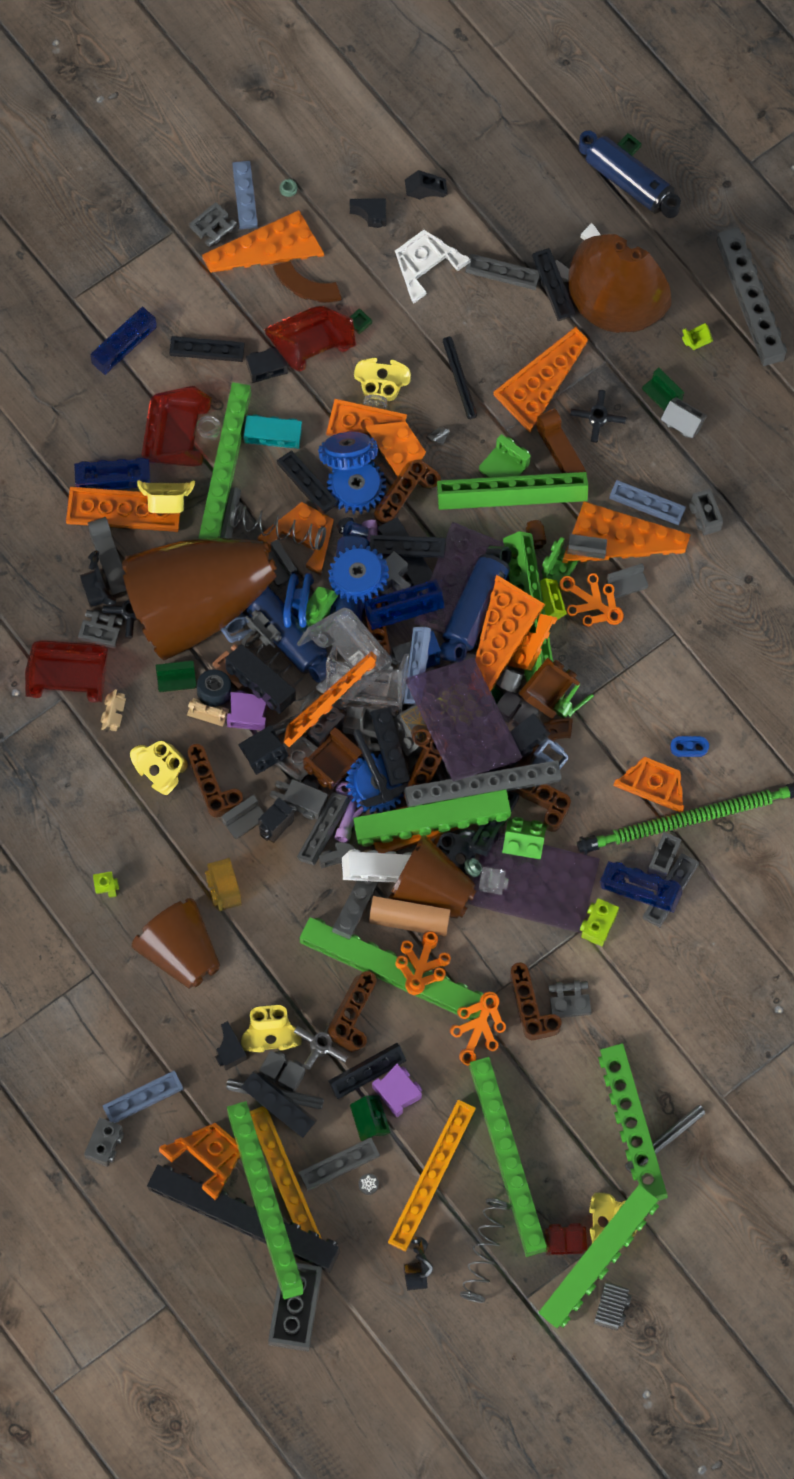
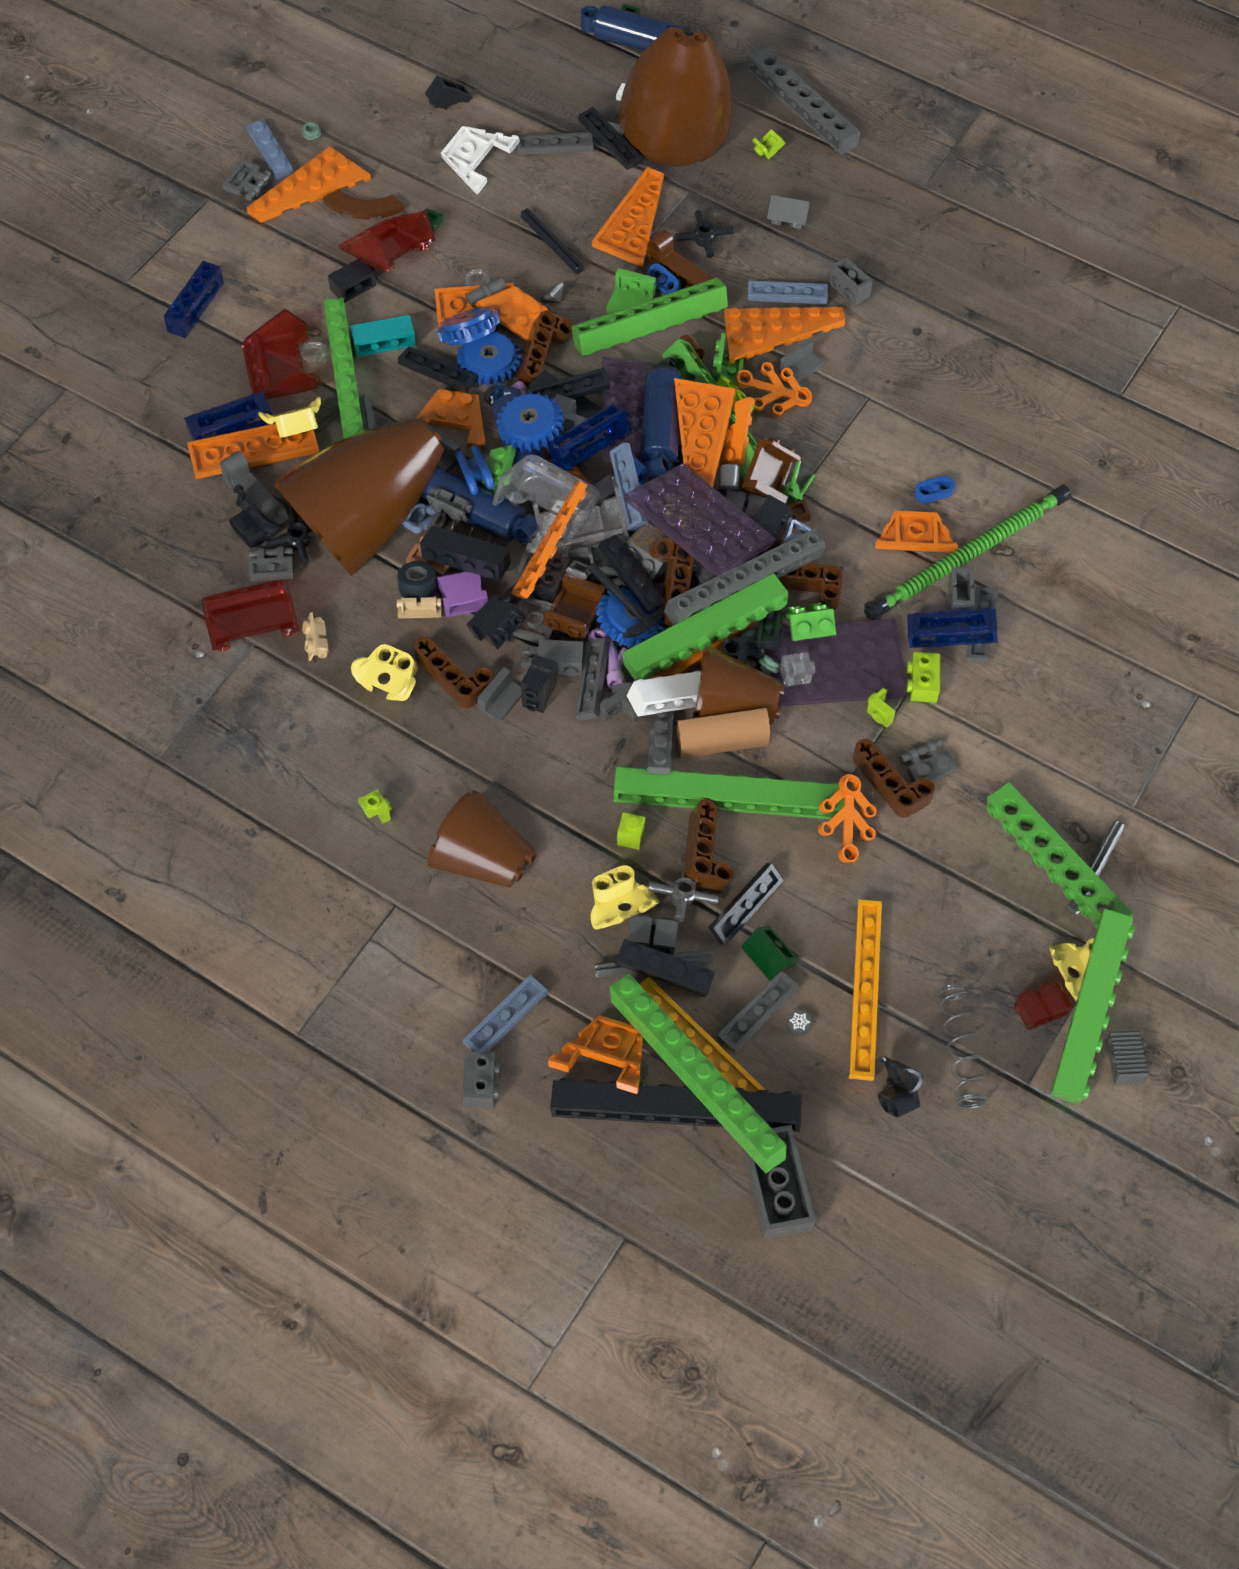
camera: 20 degrees left, 10 degrees down
(176, 676) = (370, 583): dark green panel -> none
(207, 349) = (284, 284): black plate -> none
(223, 883) = (508, 764): clear yellow brick -> none
(230, 1051) = (586, 932): black arch -> none
(301, 976) = (631, 831): none -> lime brick
(322, 529) = (376, 421): dark grey piece -> none
(347, 727) = (578, 569): none -> dark grey slope
(366, 373) = (489, 255): light yellow piece -> none
(371, 210) = (401, 127): black arch -> none
(377, 417) = (485, 290): none -> dark grey pin
(397, 1090) = (787, 913): medium lavender hips -> none
(421, 965) = (760, 793): orange plant -> none
(507, 1157) = (941, 941): bright green brick -> none
(541, 455) = (665, 280): none -> blue plate
(549, 942) = (879, 709): none -> lime bracket
(587, 546) = (750, 339): dark grey panel -> none
(662, 389) = (755, 195): dark green panel -> none

